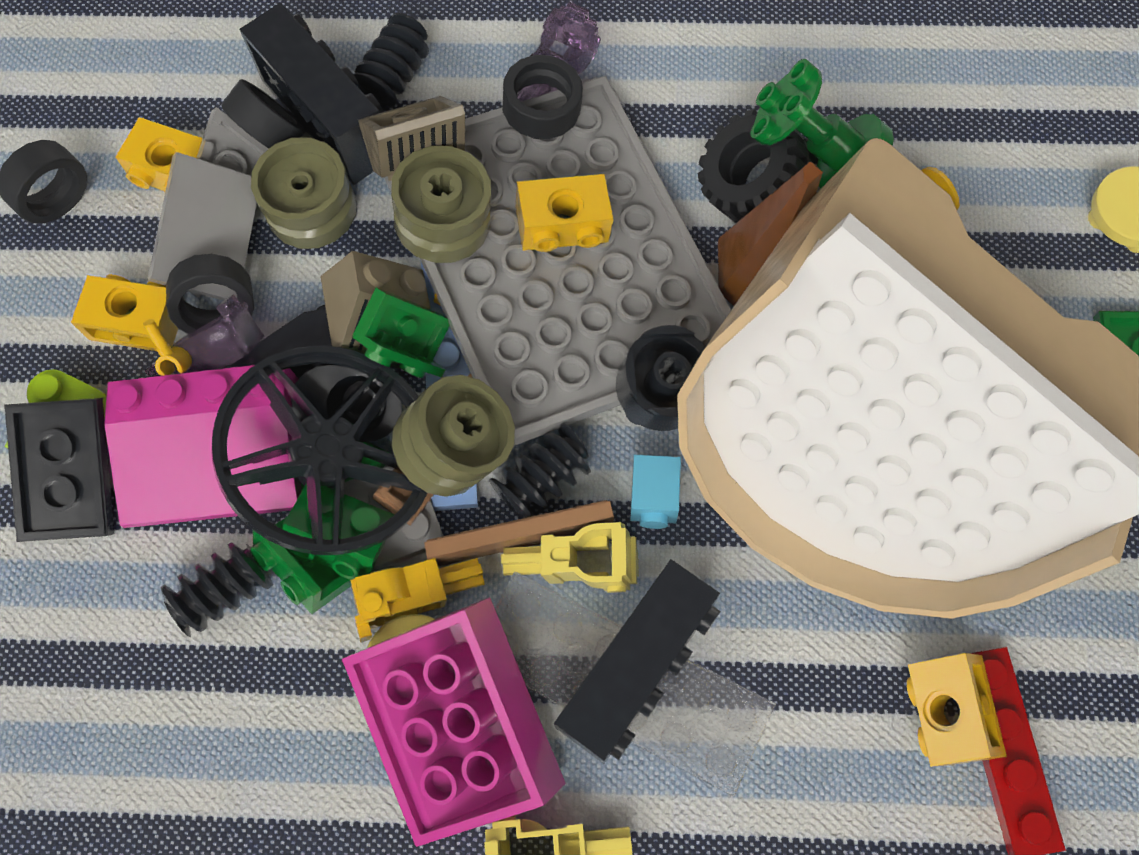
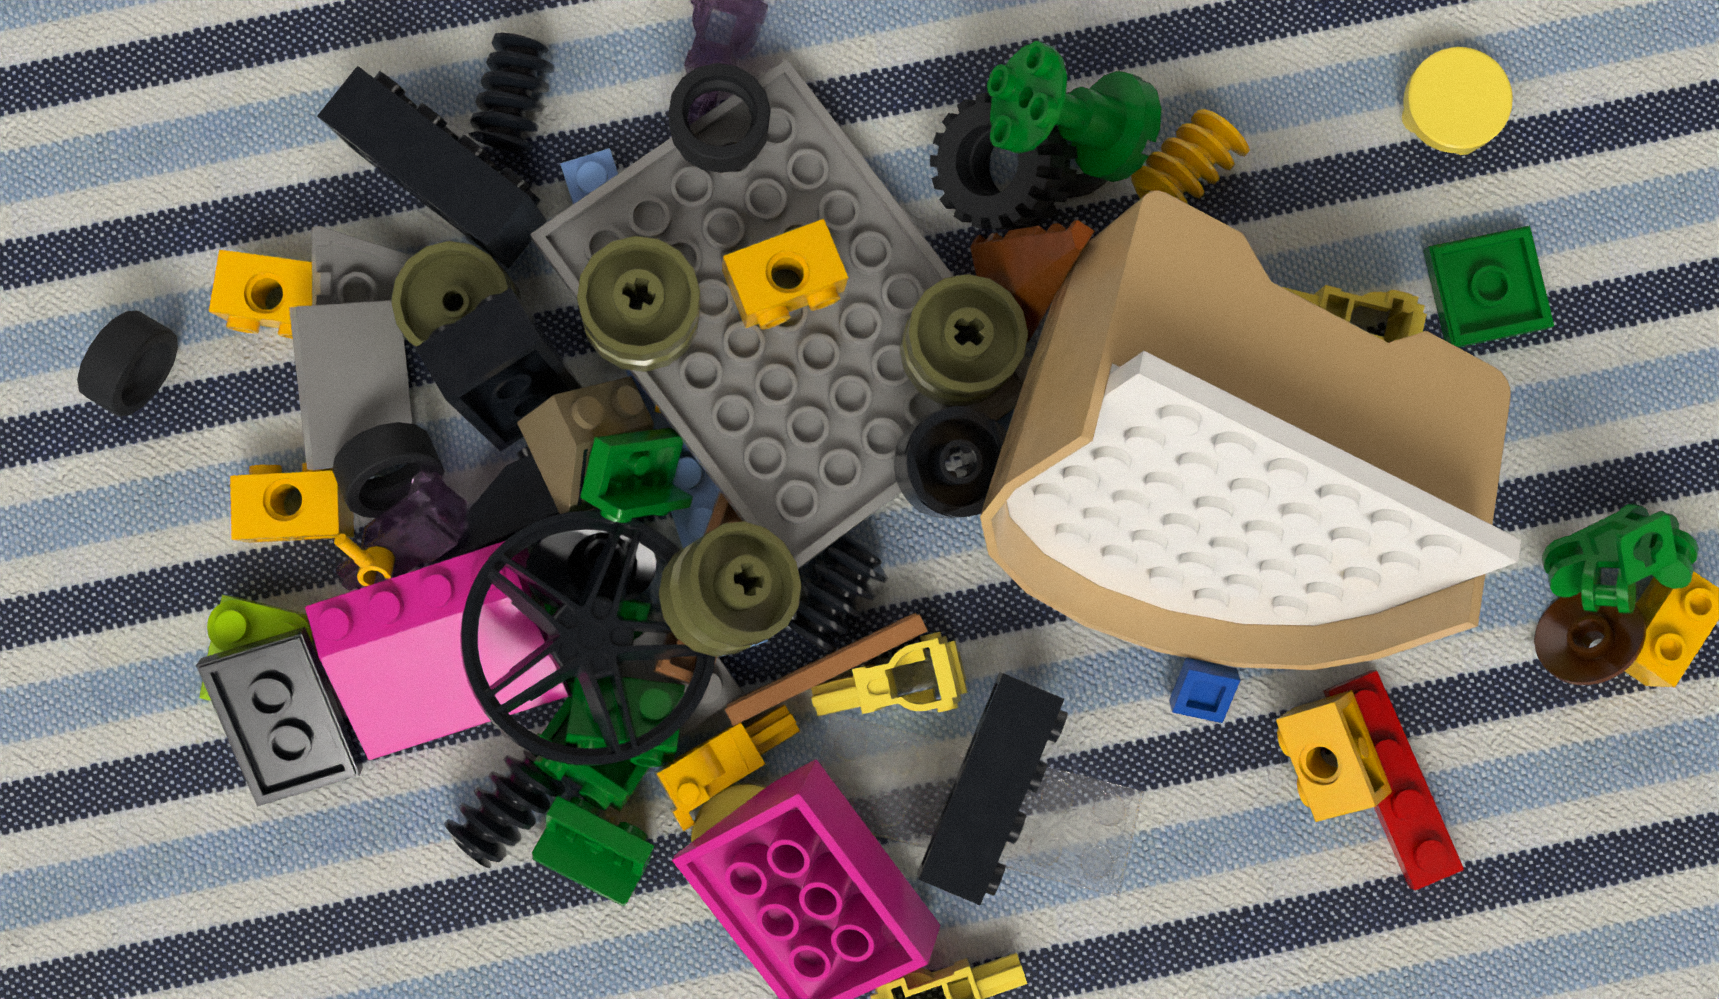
camera: 15 degrees left, 15 degrees up
(260, 115) = (376, 217): black tyre -> none
(280, 639) = (593, 850): none -> green bracket
(313, 227) = (496, 366): none -> black slope
(403, 130) = (579, 220): dark tan slope -> none
(655, 490) = (965, 584): medium azure brick -> none
(695, 283) = (969, 310): none -> olive wheel
(847, 627) = (1204, 690): none -> blue plate

